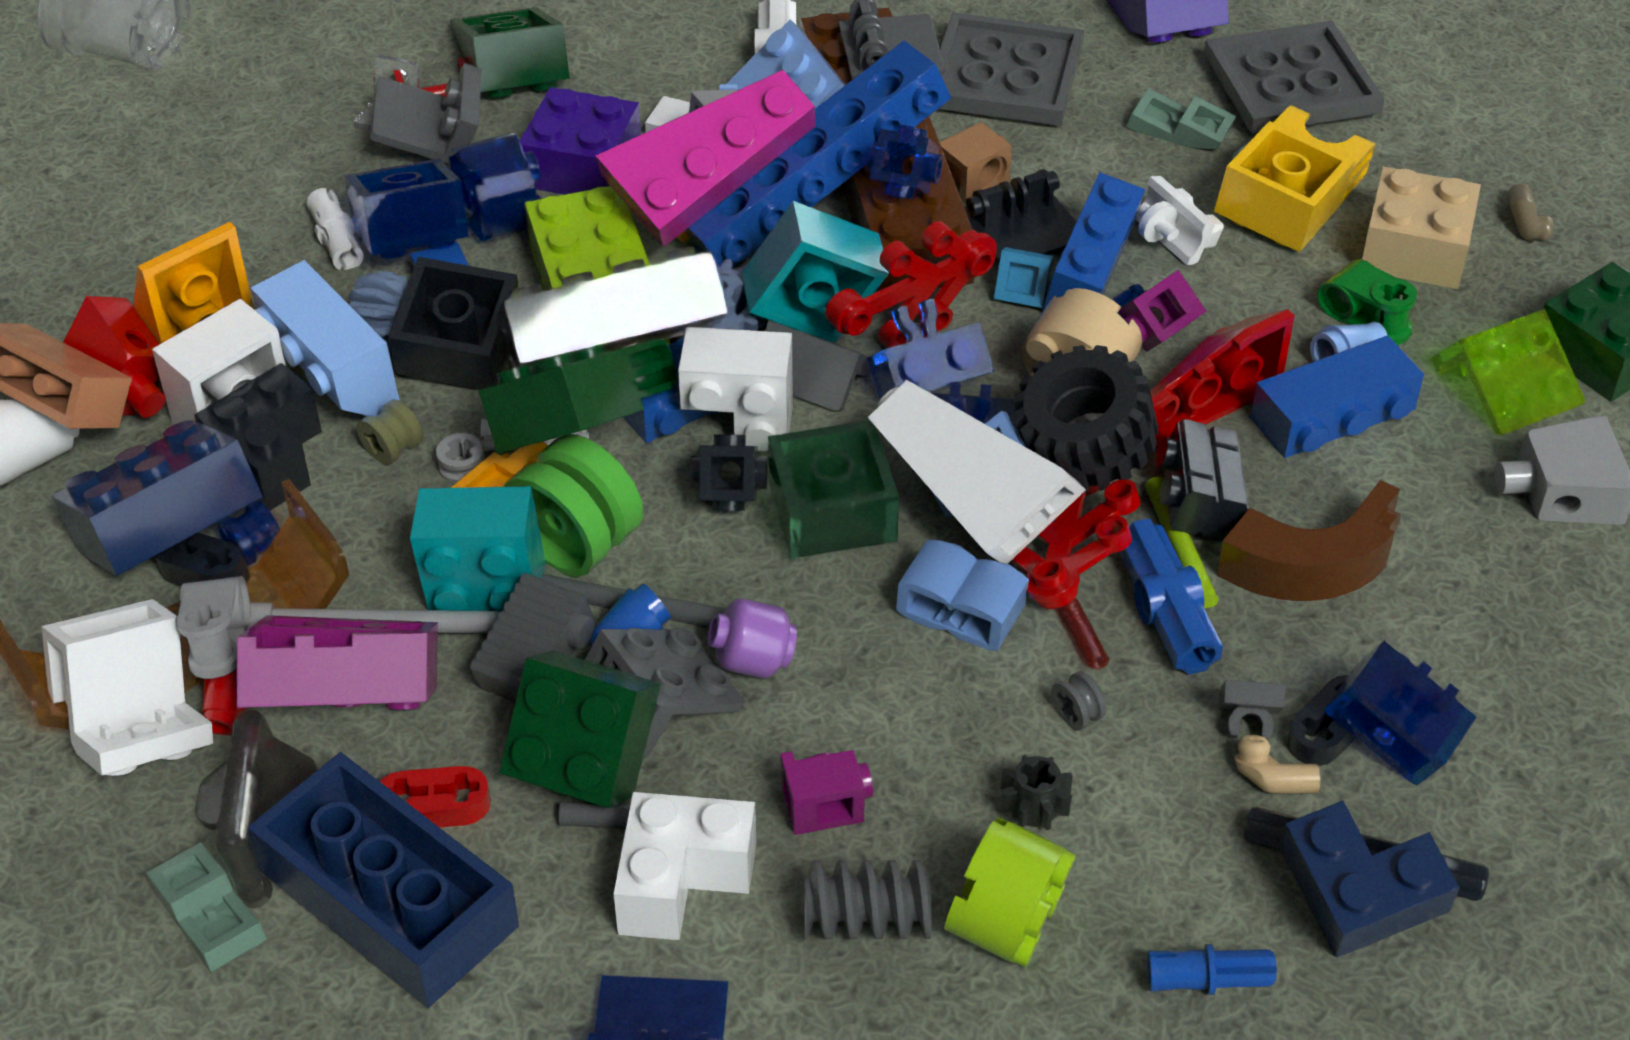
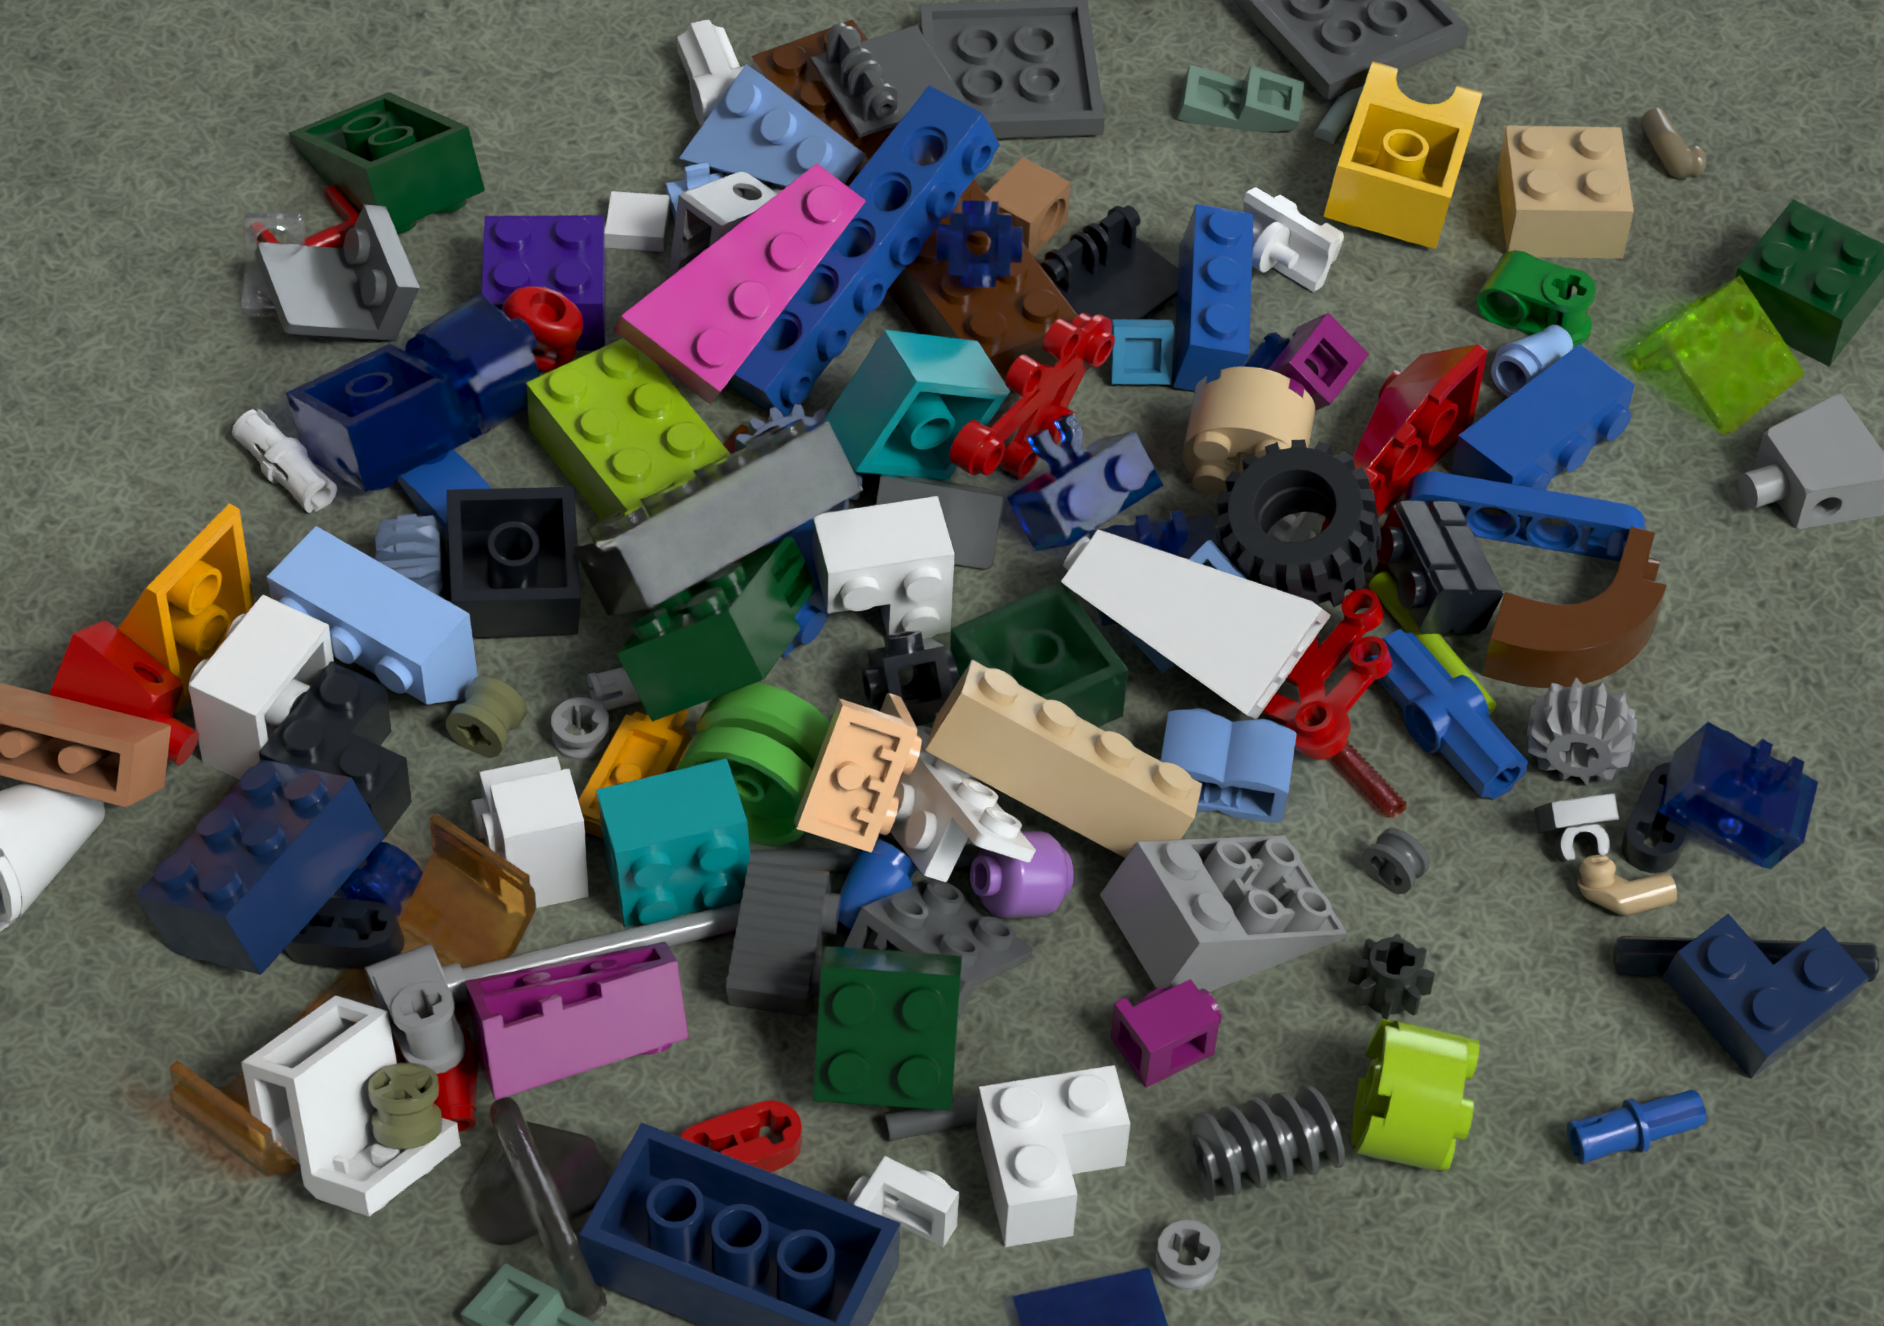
camera: 20 degrees left, 5 degrees up
(170, 696) = (405, 1105): none -> olive wheel
(374, 520) = (537, 825): none -> white brick
(548, 873) = (913, 1198): none -> white bracket
(560, 164) = (553, 321): none -> red piece
(634, 523) = (859, 772): none -> light nougat bracket
(709, 568) = (944, 808): none -> white bracket
(764, 961) = (1170, 1245): none -> light grey bush
(813, 558) = (1061, 763): none -> tan brick
(911, 703) = (1218, 908): none -> light grey slope
(1278, 631) = (1581, 731): none -> light grey gear
(1297, 453) = (1526, 509): none -> blue beam

